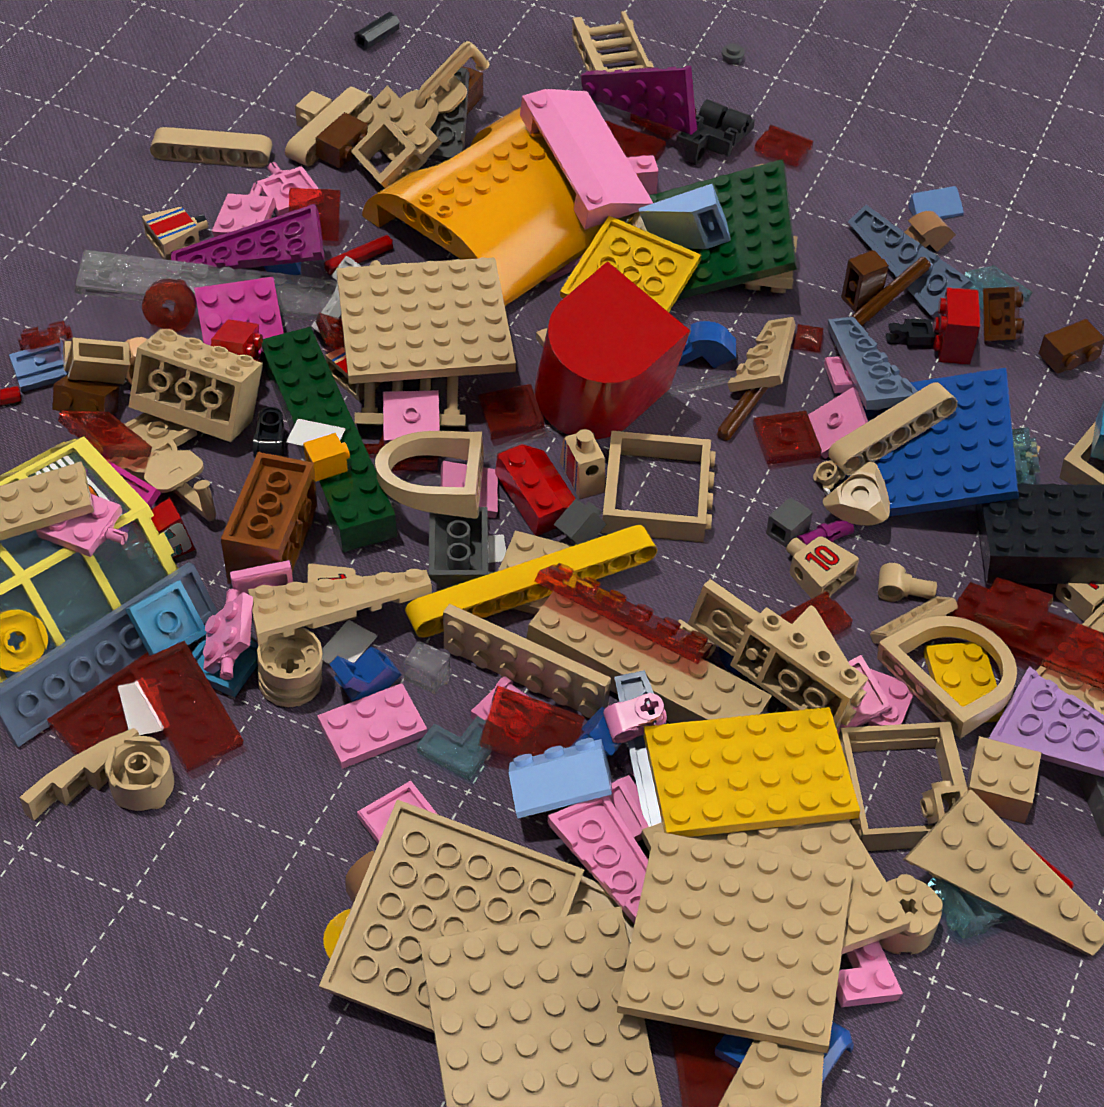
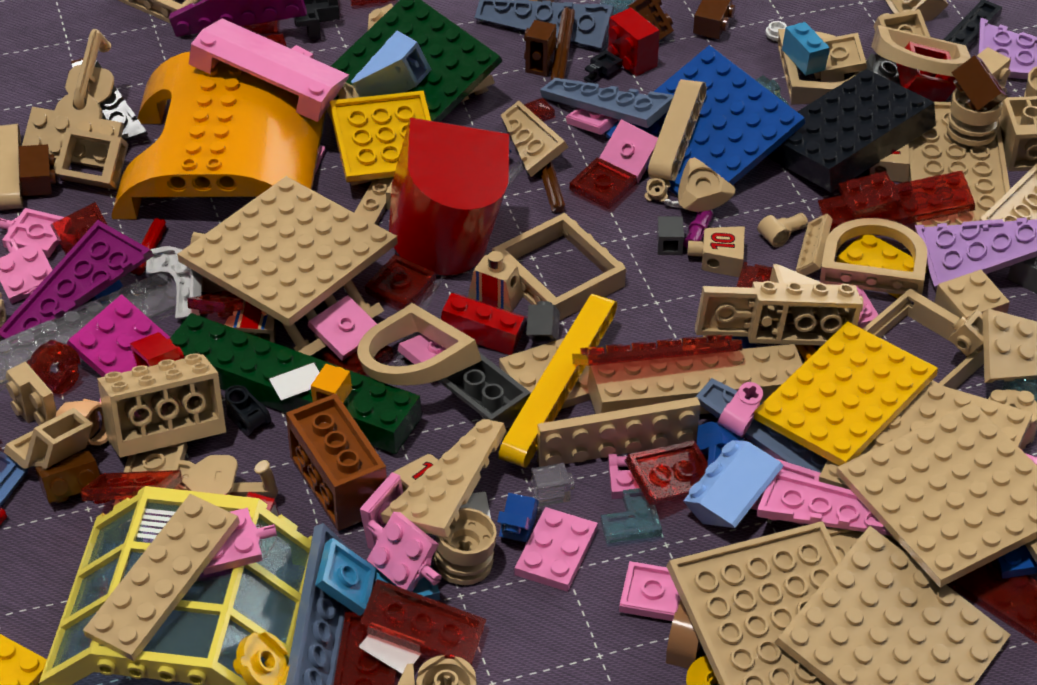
camera: 40 degrees left, 5 degrees down
(128, 311) = (30, 395): none -> tan plate

